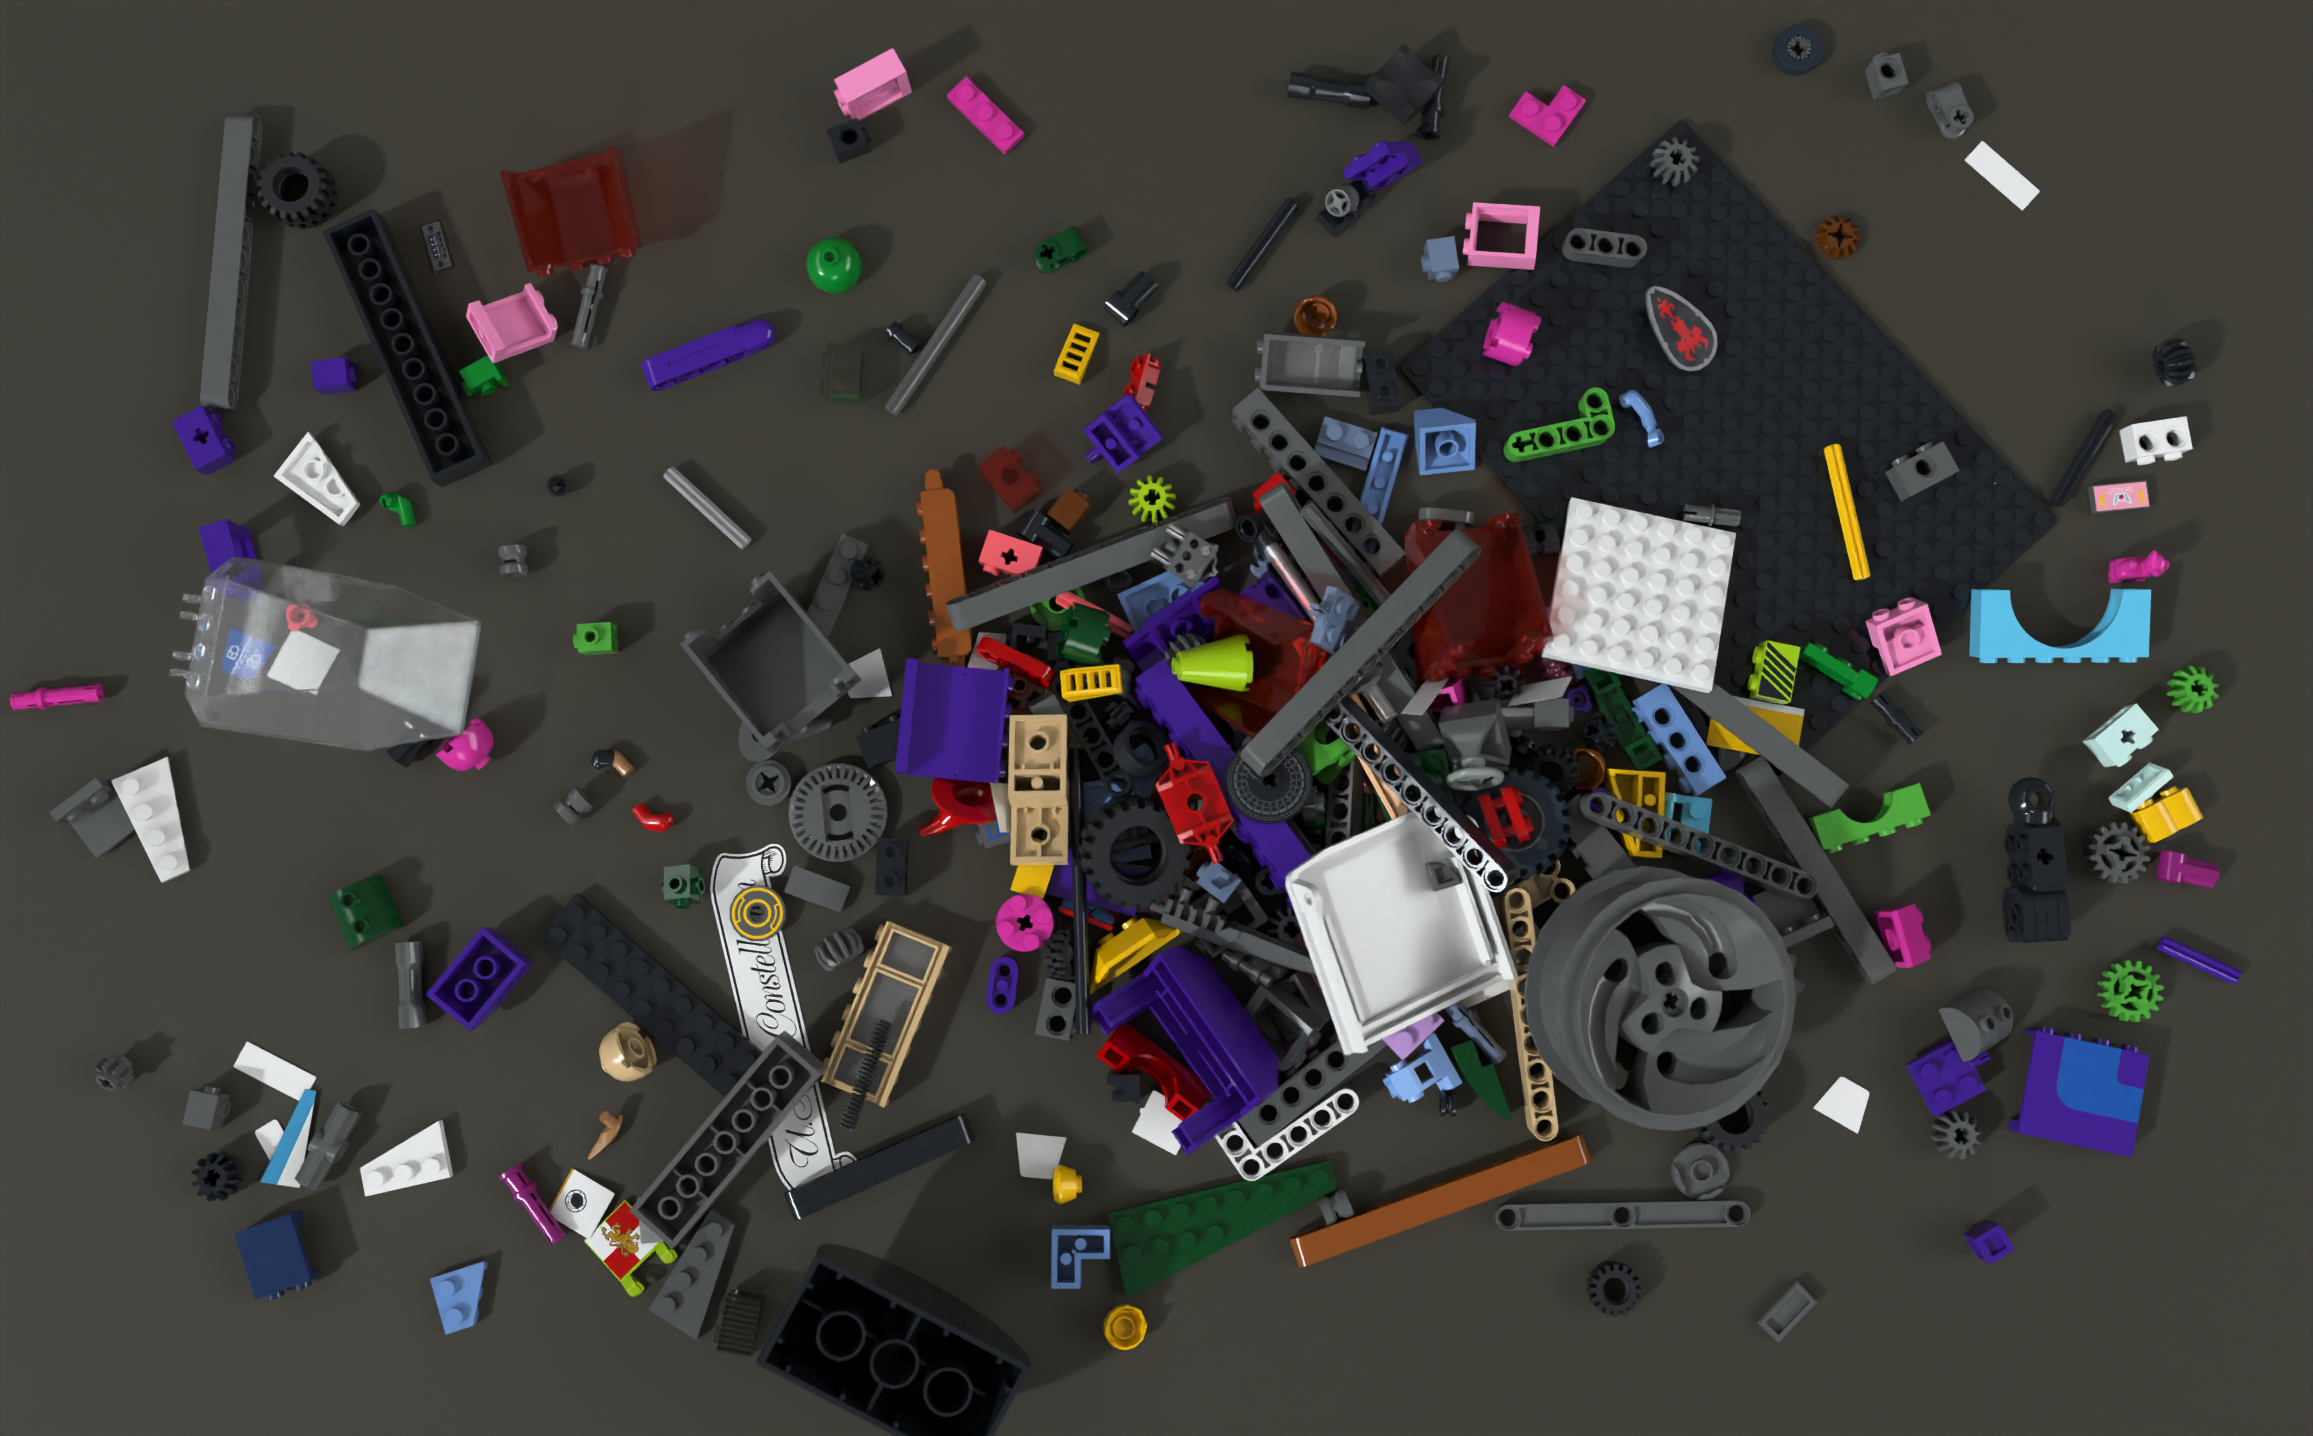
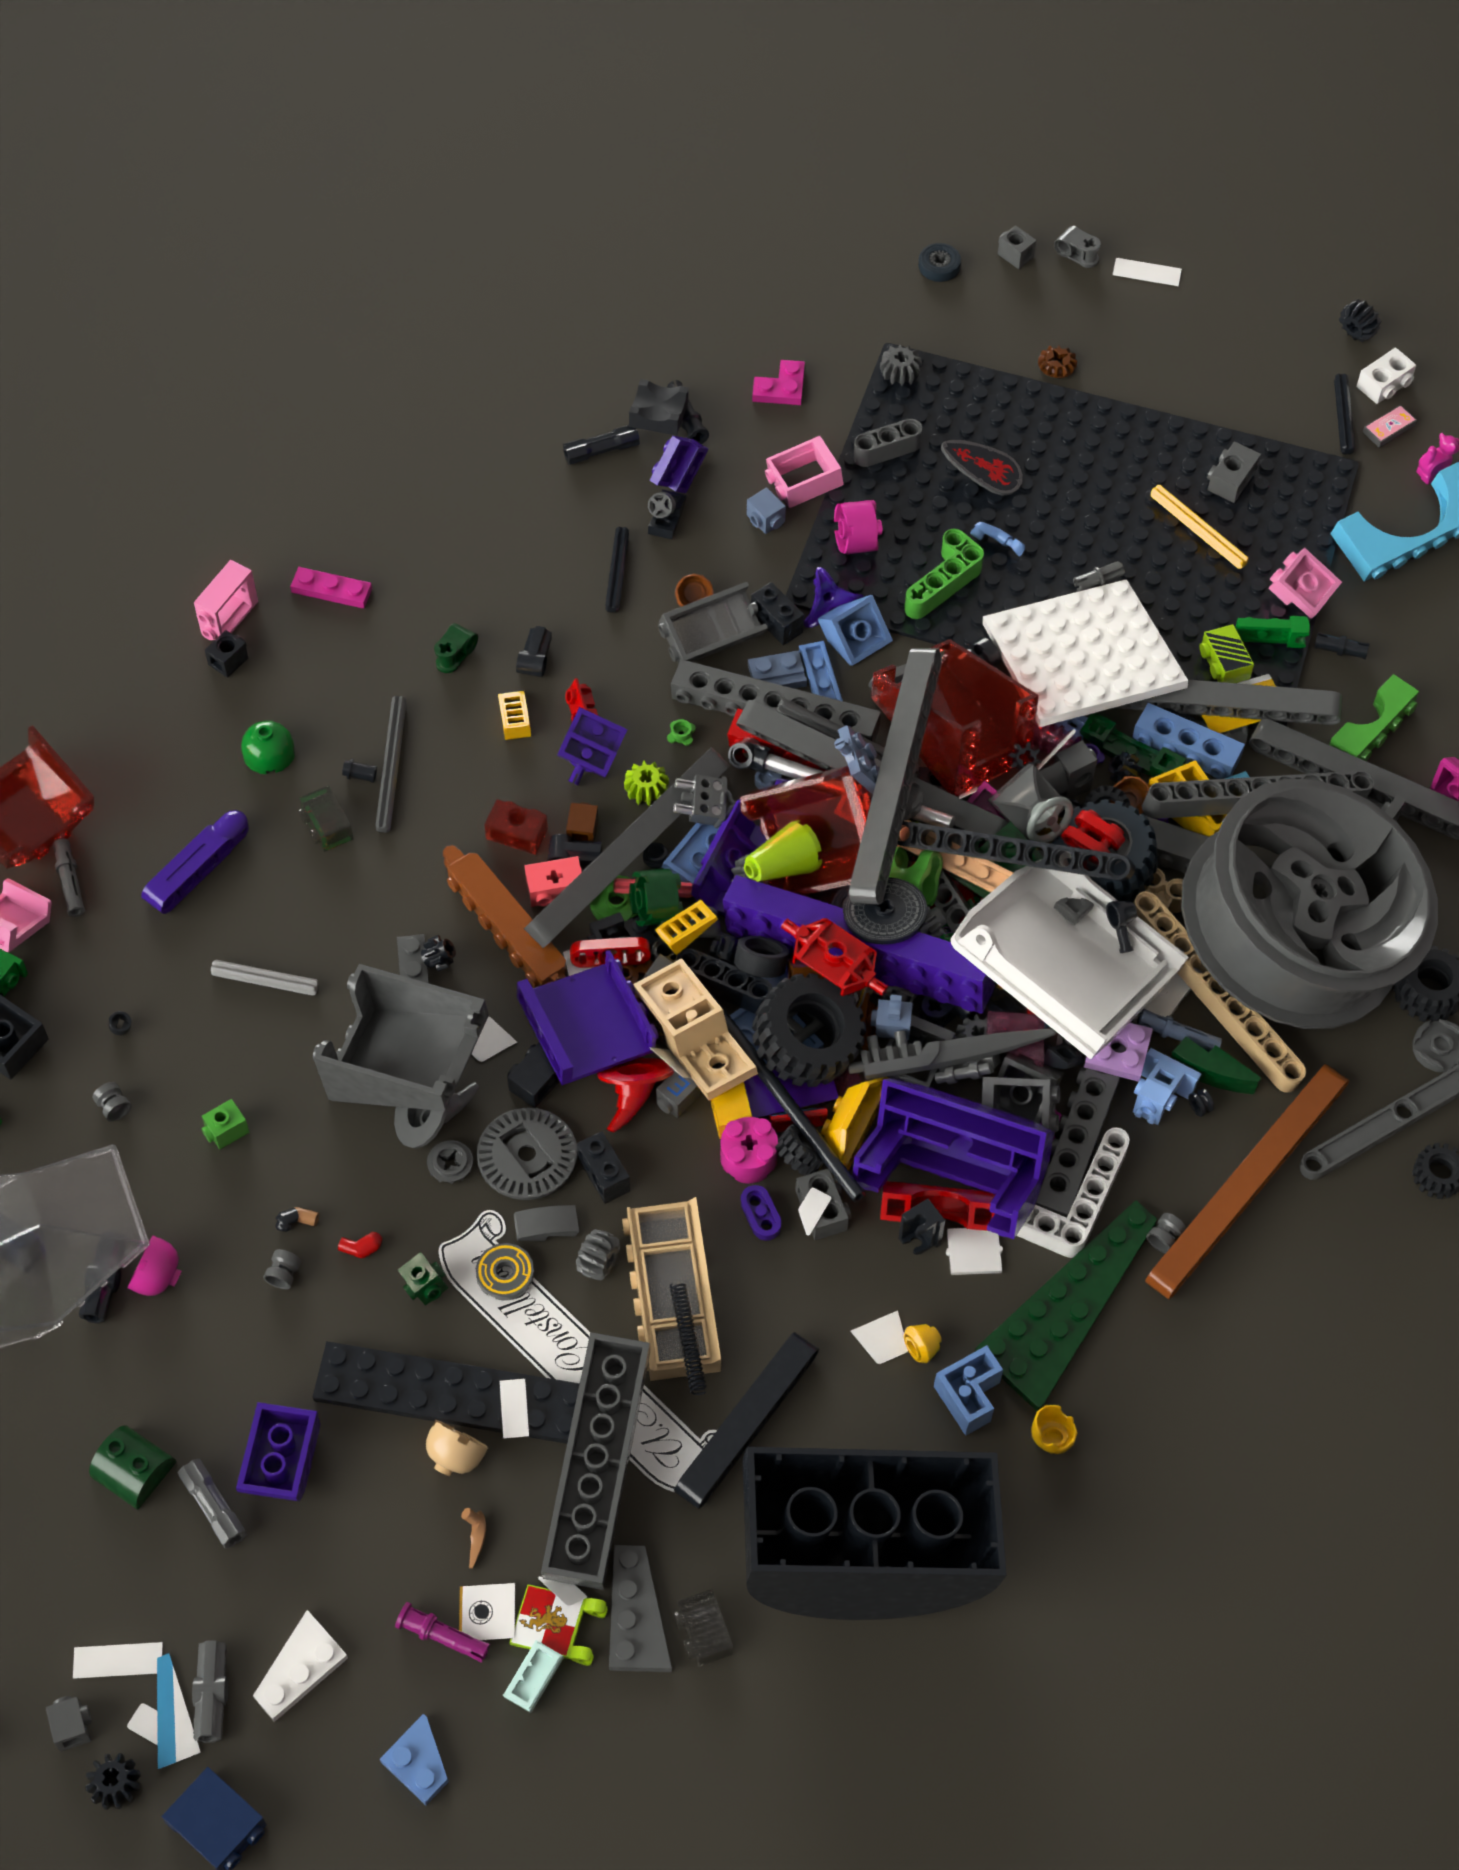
camera: 30 degrees left, 25 degrees down
(584, 1282) = (533, 1676): none -> light aqua plate
(693, 1046) = (514, 1408): none -> white sticker
(1042, 1015) = (813, 1208): none -> white sticker
(1217, 453) = (681, 726): none -> bright green plate
(1437, 394) = (827, 597): none -> dark purple piece
(1477, 910) = (1119, 915): none -> black bar

